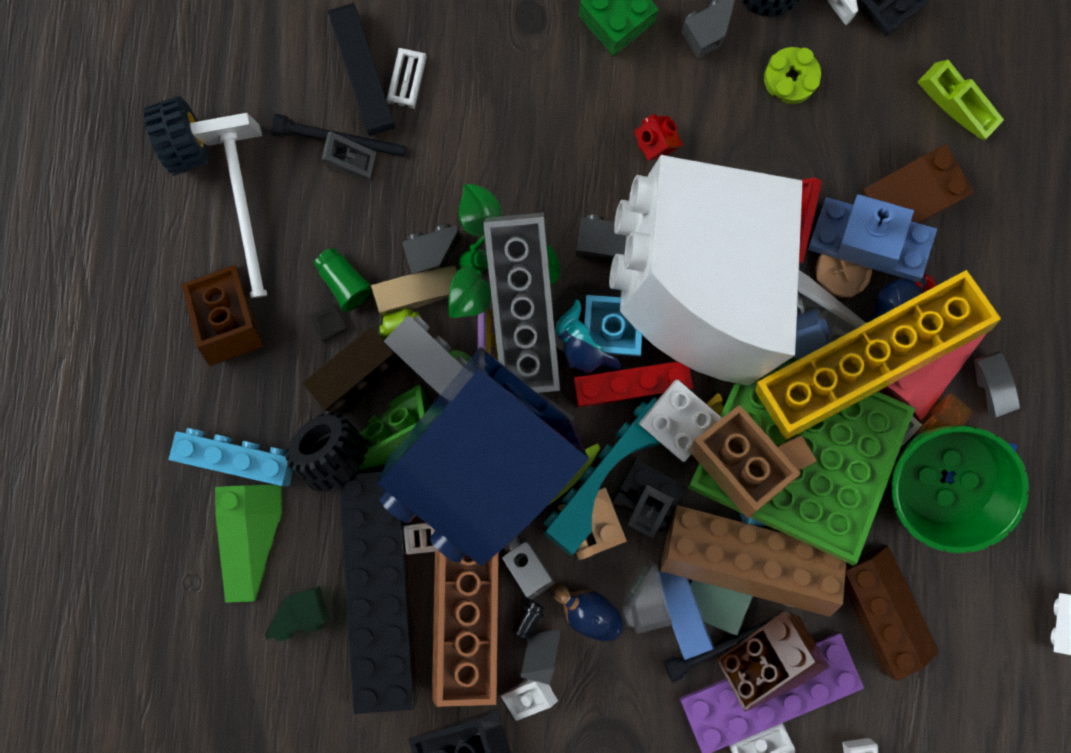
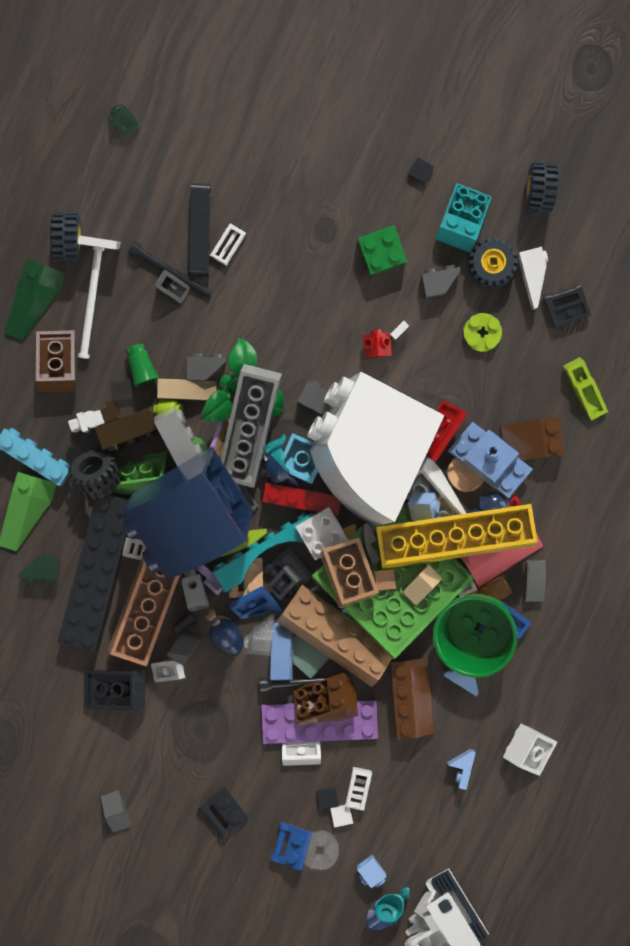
camera: 25 degrees right, 5 degrees up
(161, 232) = (33, 296): none -> dark green wedge
(290, 378) = (91, 419): none -> white hips
(544, 544) = (210, 580): none -> lavender plate
(619, 556) = (255, 604): none -> blue wing
(681, 107) = (399, 330): none -> white tile
(750, 401) = (368, 537): none -> dark grey slope
(851, 444) = (422, 585): none -> tan slope
(959, 562) = (465, 682): none -> light blue slope
(1002, 679) = (464, 762): none -> light blue slope

